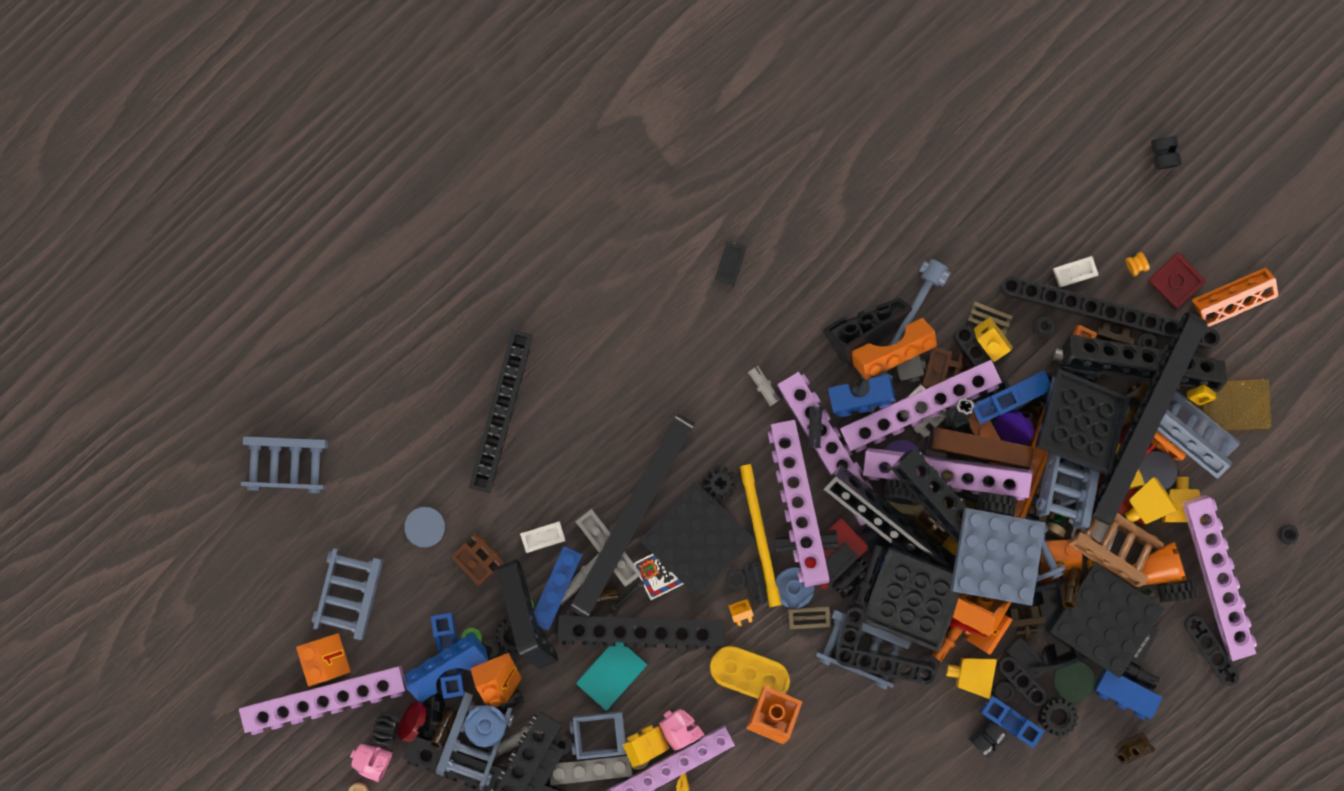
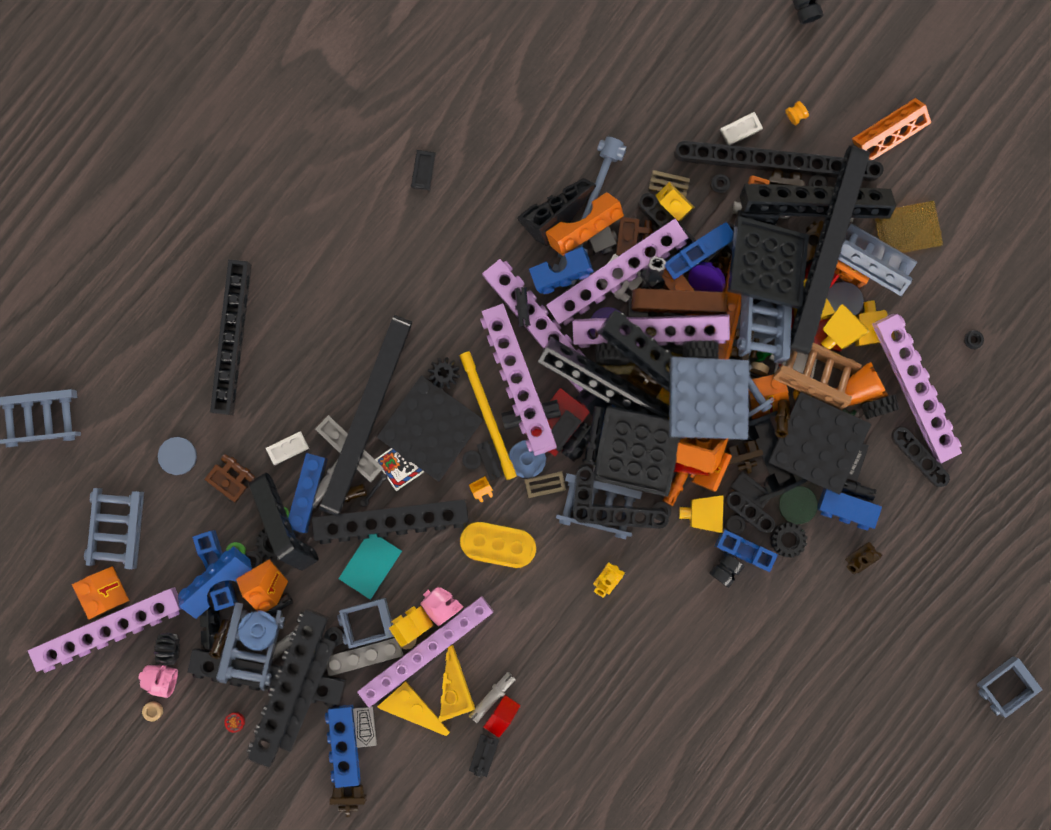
camera: 10 degrees left, 0 degrees up
(411, 720) = (191, 633): dark red tile -> none
(763, 385) = (470, 277): light grey pin -> none
(774, 715) = (526, 579): orange slope -> none
(860, 729) = (607, 579): none -> yellow hips
(1176, 281) = (835, 123): dark red tile -> none
(1201, 395) = (874, 223): yellow tile -> none

